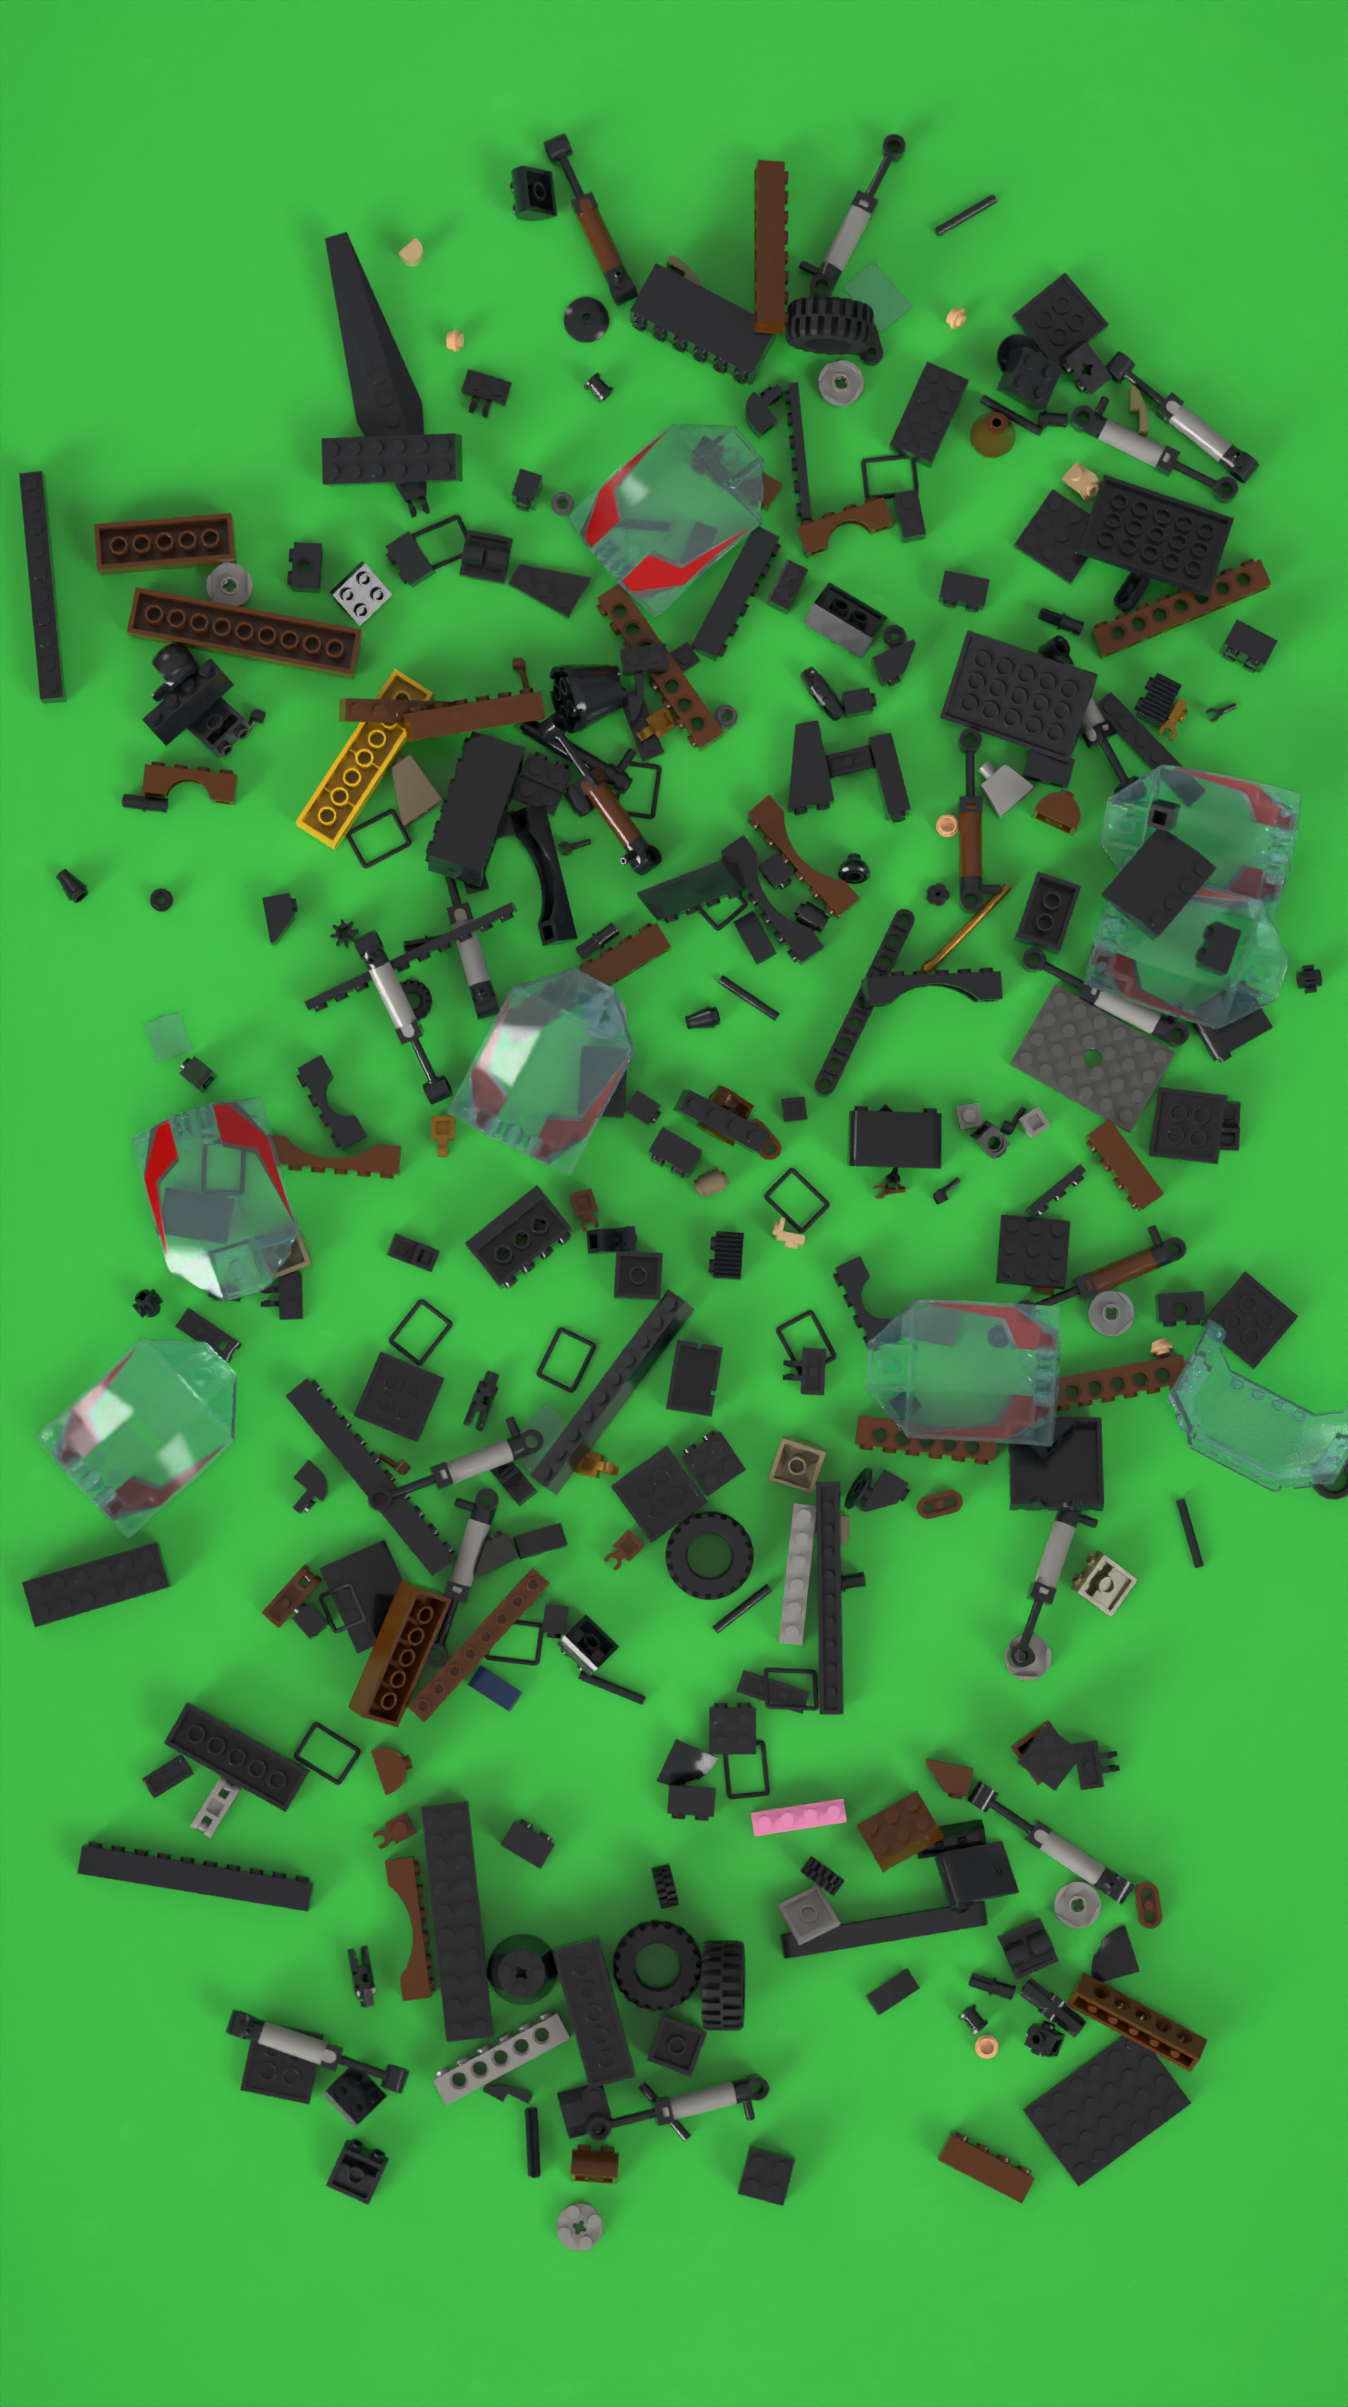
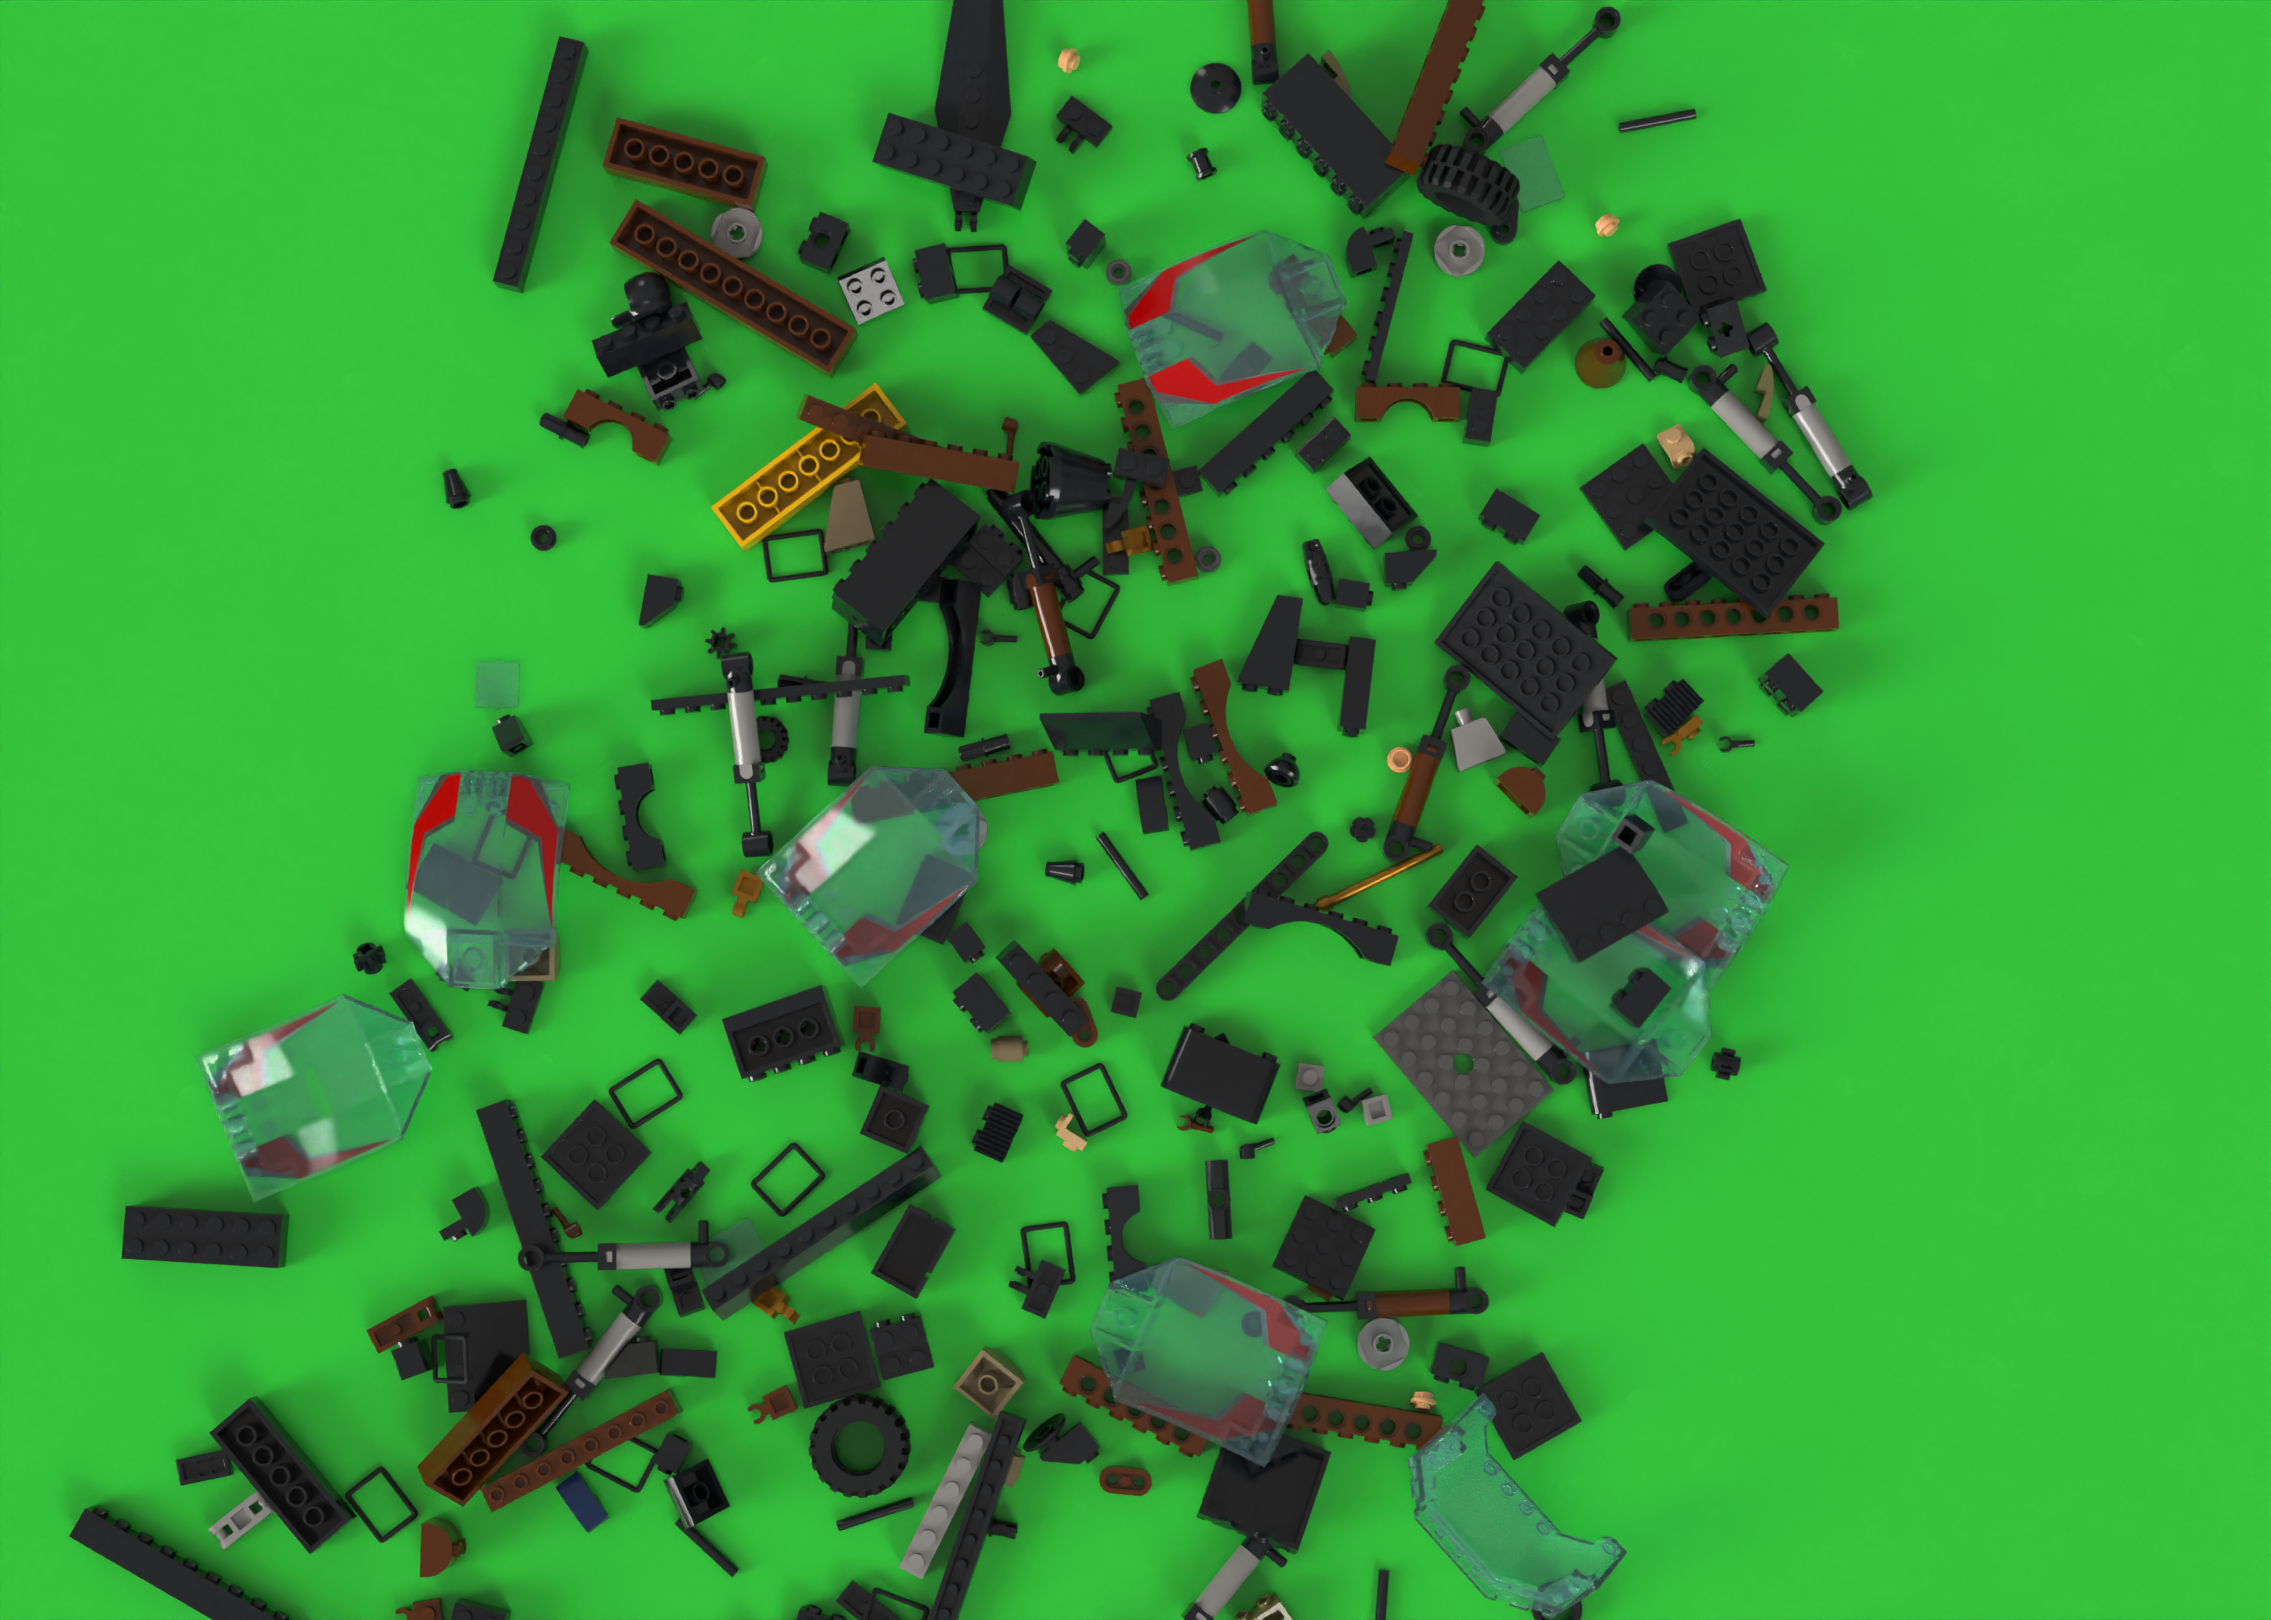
camera: 30 degrees right, 0 degrees up
(936, 1258) = (1219, 1217): none -> black piece

